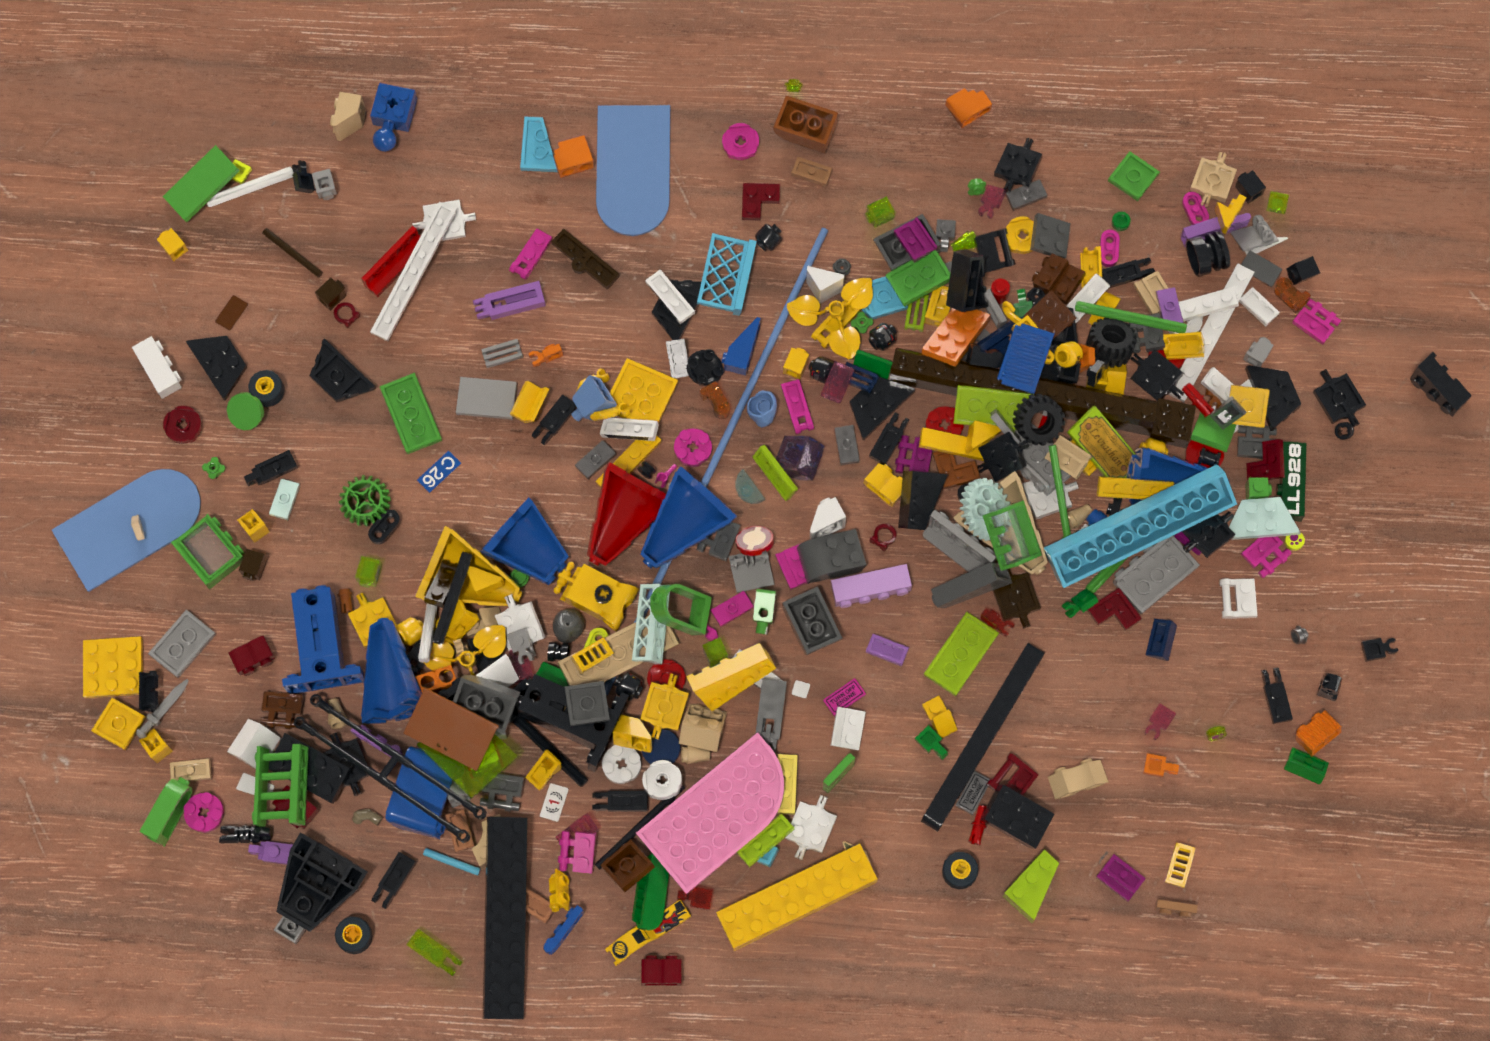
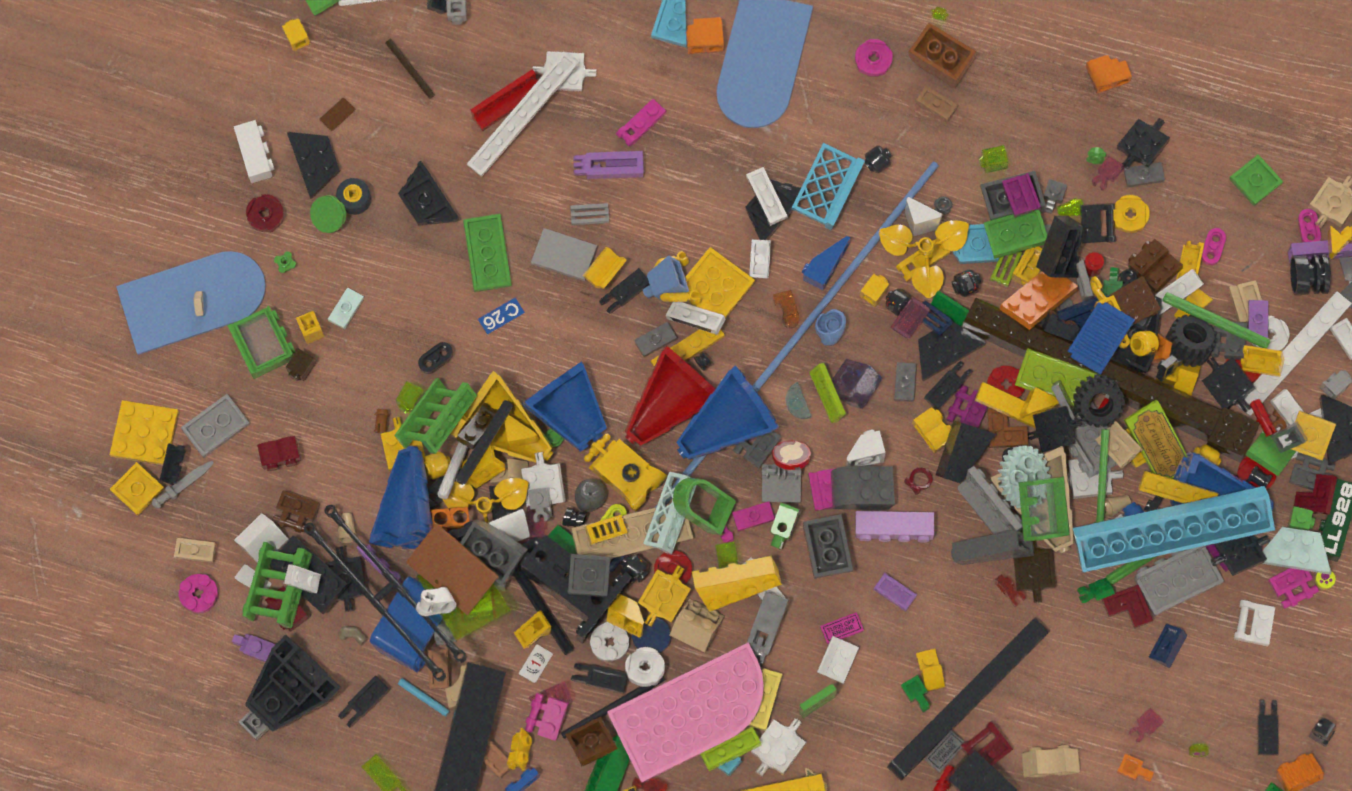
camera: 15 degrees right, 0 degrees up
(155, 746) = (167, 518): yellow slope -> none
(167, 811) = (163, 584): bright green window -> none
(244, 834) = (232, 623): black hinge -> none
(271, 469) = (340, 276): black hinge -> none
(304, 773) = (302, 579): none -> white plate
(319, 644) = (346, 457): blue brick -> none
(331, 293) = (437, 117): dark brown brick -> none
(350, 929) = (308, 740): black wheel -> none
(355, 314) = (447, 150): dark red piece -> none
(372, 486) = (435, 315): bright green gear -> none
(409, 587) = (444, 423): none -> bright green fence
(442, 765) = (435, 602): none -> white piece
(460, 647) = (480, 491): tan plate -> none
(503, 785) = (492, 636): dark grey plate -> none
(549, 354) = (637, 224): orange plate -> none
(584, 259) = (692, 140): dark brown hinge -> none
(664, 476) = (718, 371): dark pink hand -> none
(693, 755) = (682, 650): tan cone -> none
(699, 455) = (757, 359): dark pink plate -> none
(704, 367) = (784, 273): black dish -> none
(754, 195) = (875, 114): dark red plate -> none
(797, 406) = (865, 332): dark pink plate -> none
(800, 689) = (801, 610): white sticker -> none
(862, 328) = (949, 269): bright green plate -> none
(961, 654) = (967, 613): lime tile -> none
(1050, 235) = (1157, 221): dark grey plate -> none
(1121, 221) = (1232, 222): green tile -> none
(1126, 272) = (1224, 274): black hinge -> none
(1208, 304) = (1297, 325): white plate -> none
(1299, 635) = (1306, 673): flat silver plate -> none

